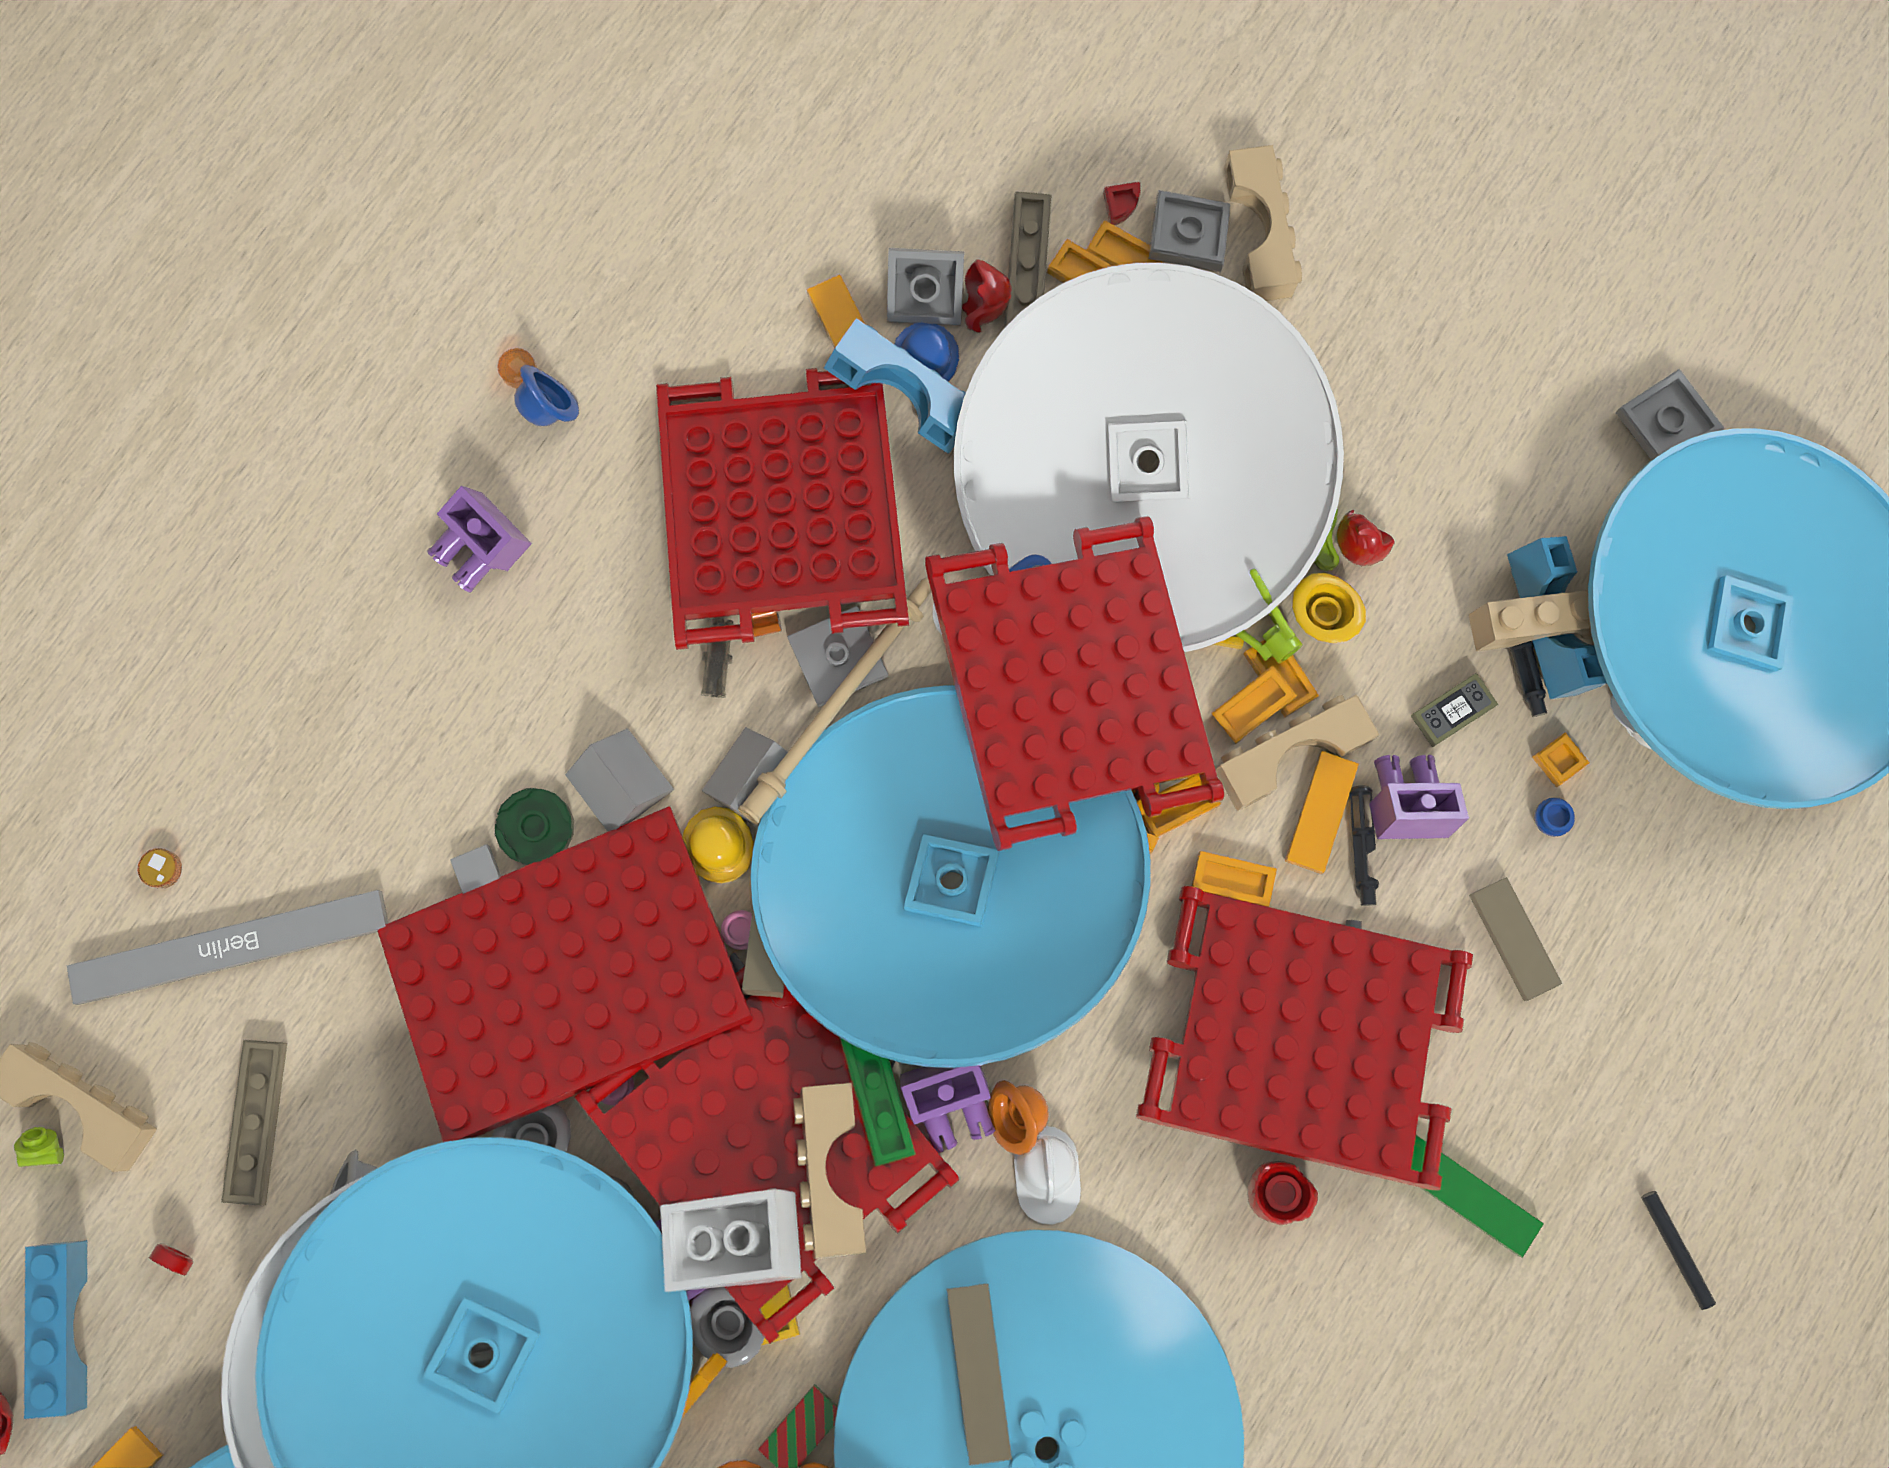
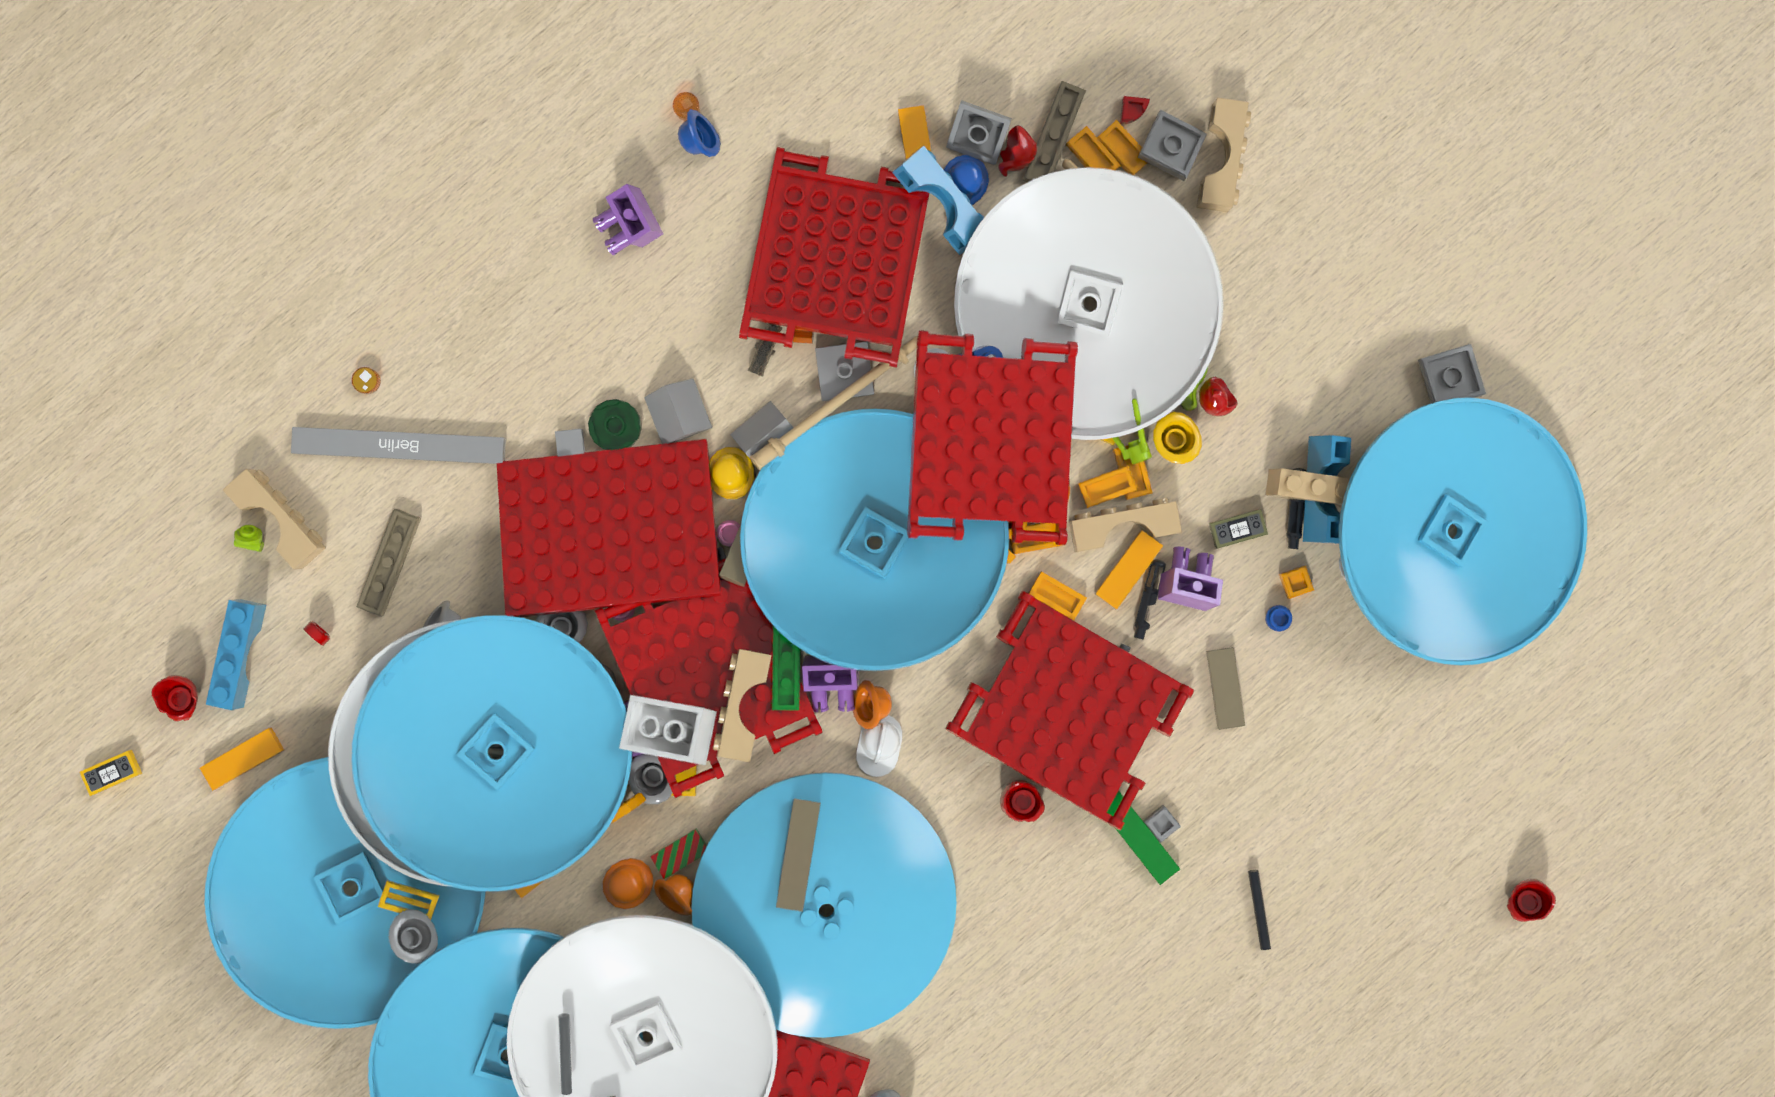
camera: 20 degrees right, 10 degrees up
(1493, 1164) = (1161, 823): none -> light grey tile

